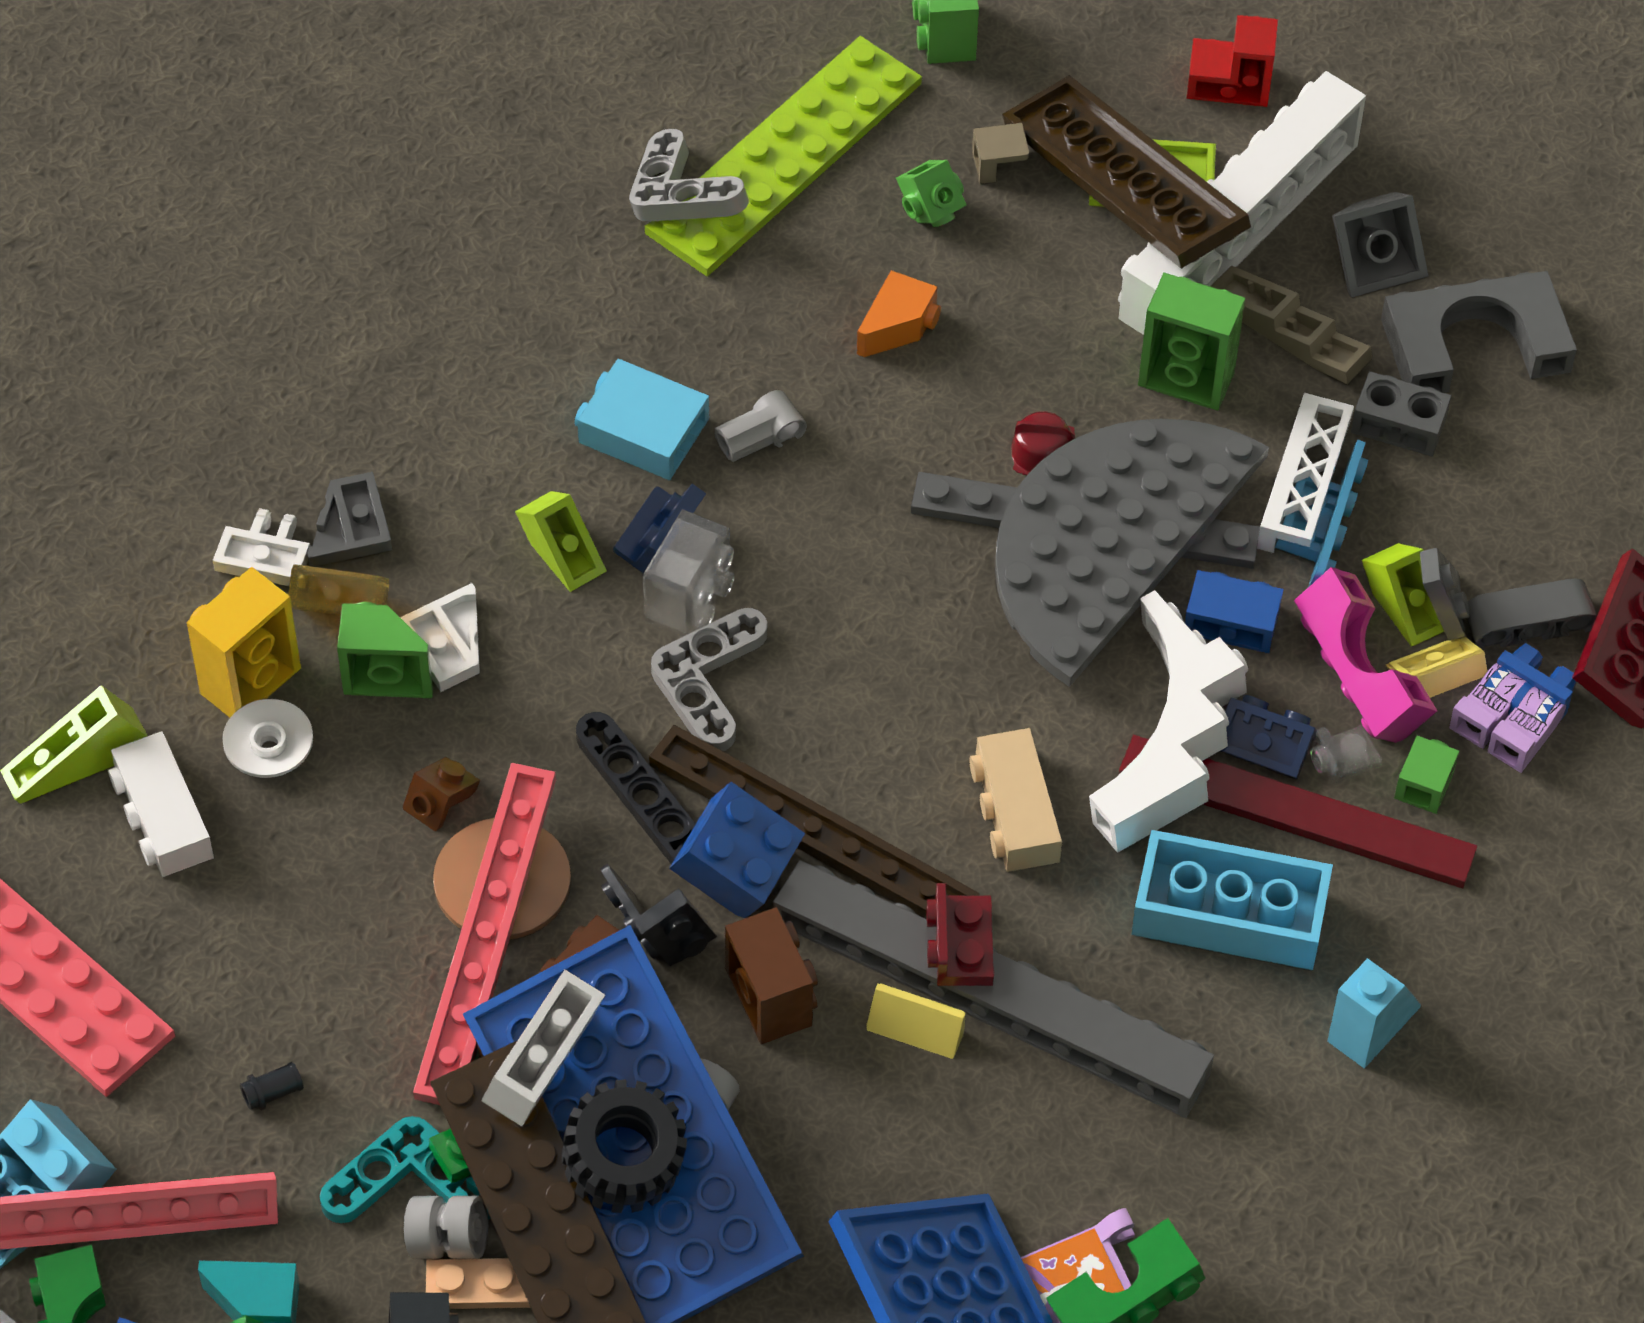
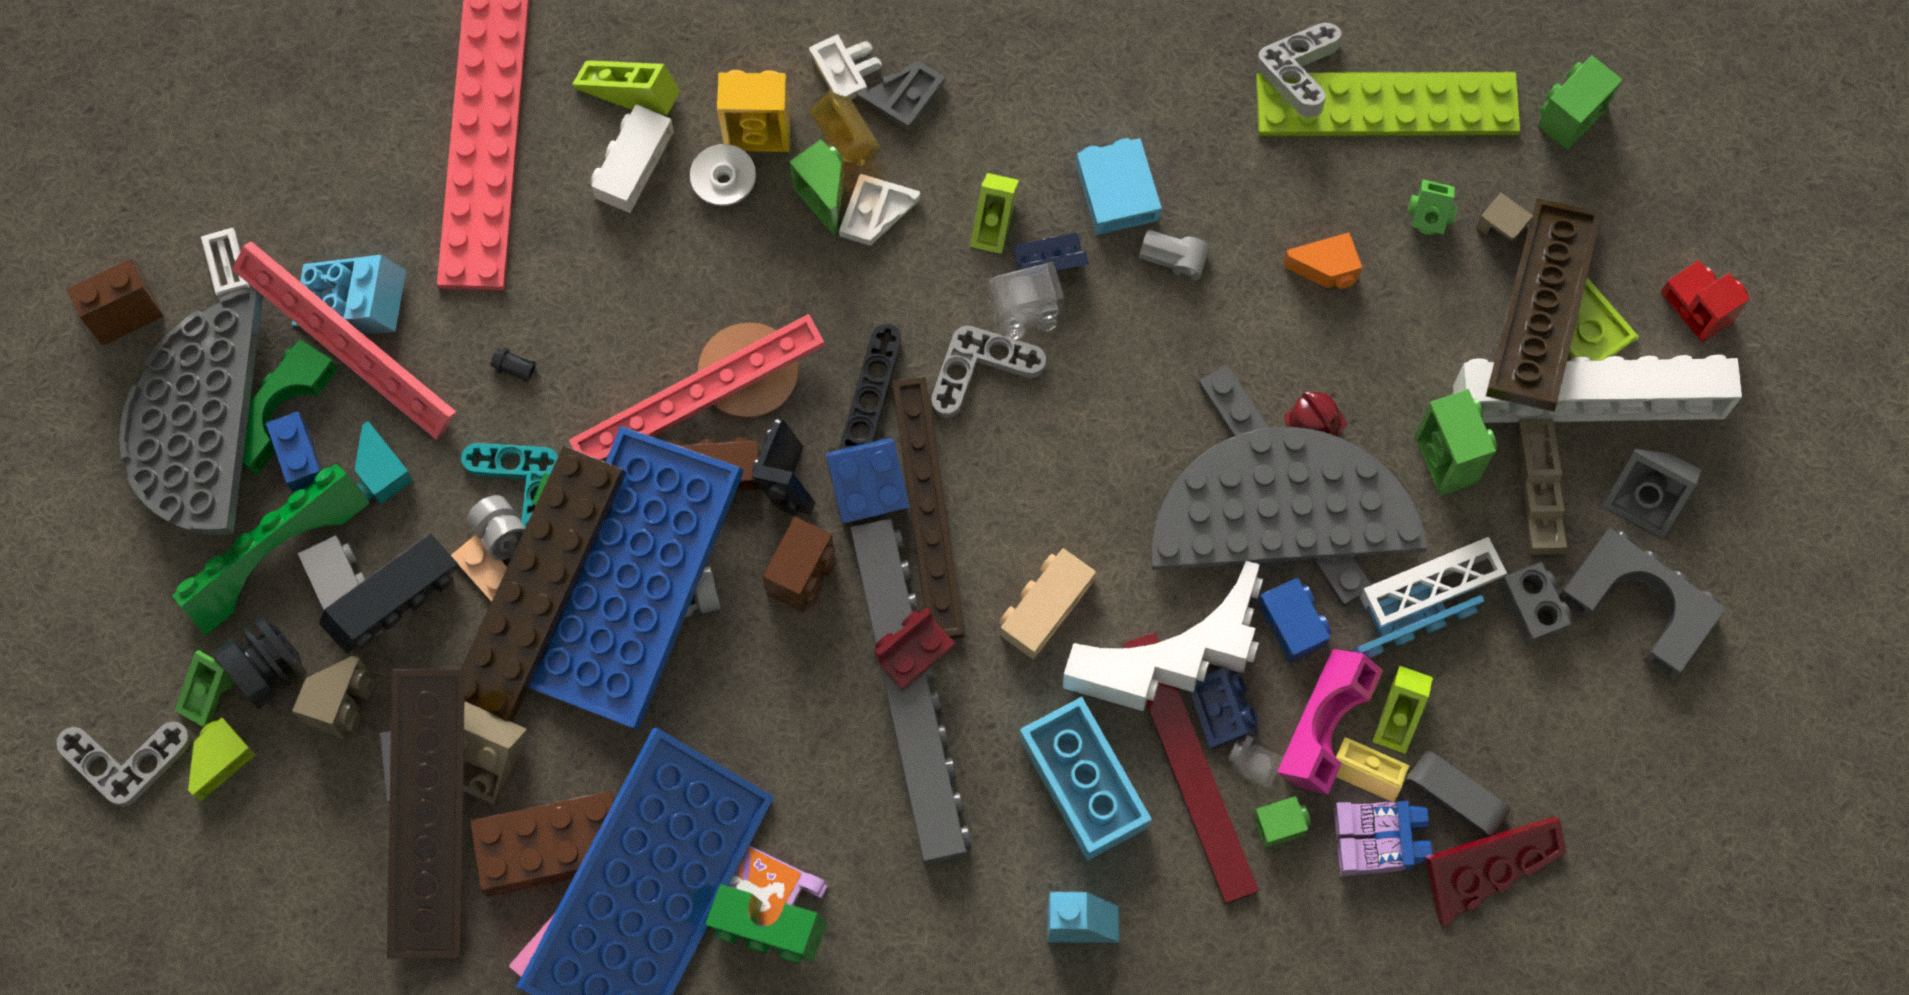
camera: 50 degrees right, 15 degrees up
(437, 790) = (773, 290): reddish brown bracket -> none
(543, 1047) = (616, 487): white brick -> none
(629, 1109) = (576, 565): black tyre -> none
(916, 1021) = (849, 667): light yellow slope -> none
(1445, 593) = (1416, 731): dark grey wing -> none

